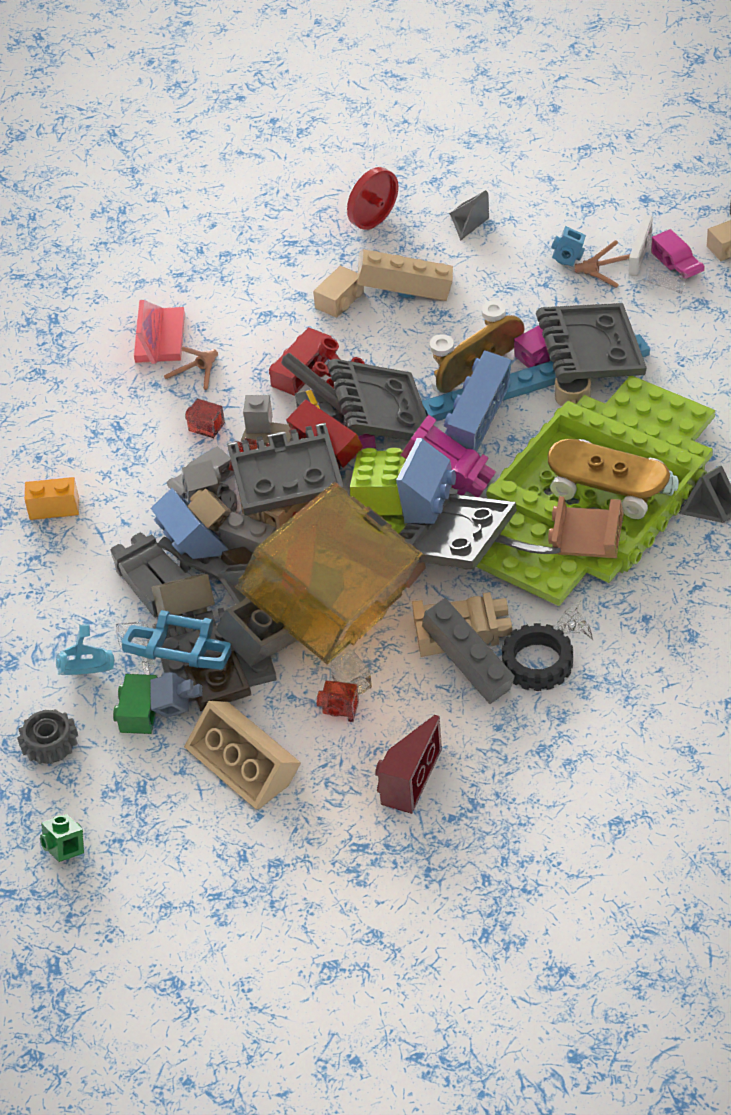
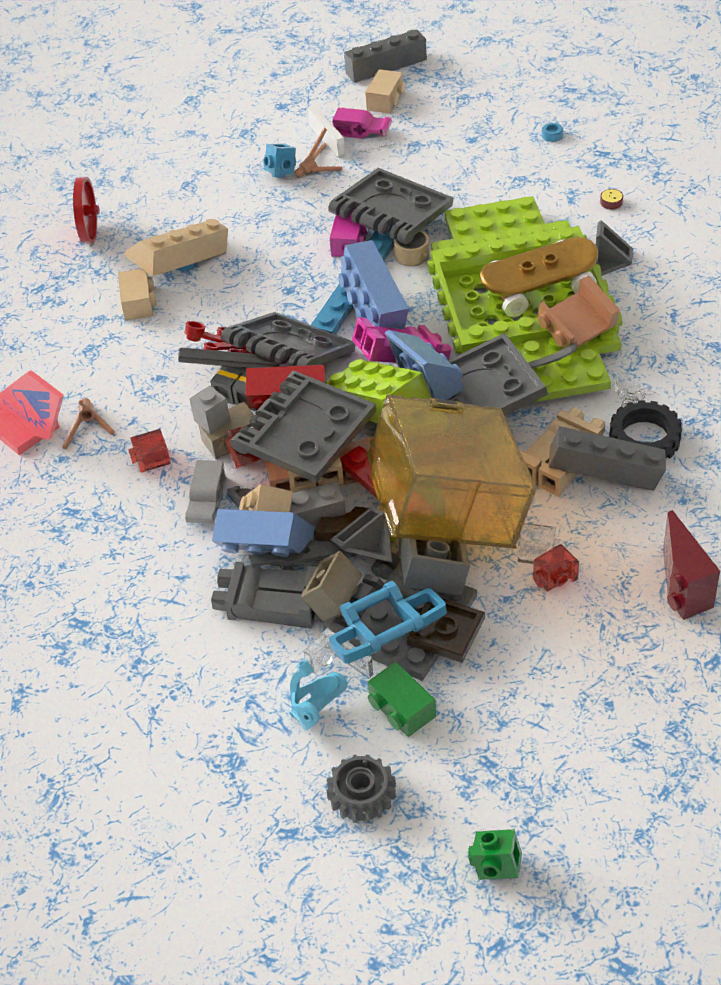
camera: 45 degrees left, 0 degrees up
(51, 498) = (97, 602): light orange brick -> none
(172, 693) = (428, 665): sand blue brick -> none
(200, 477) = (230, 488): light grey brick -> none
(241, 754) = (539, 668): tan slope -> none
(305, 350) = (174, 375): red brick -> none
(471, 214) = (165, 183): dark grey slope -> none
(495, 338) = (310, 264): pearl gold piece -> none

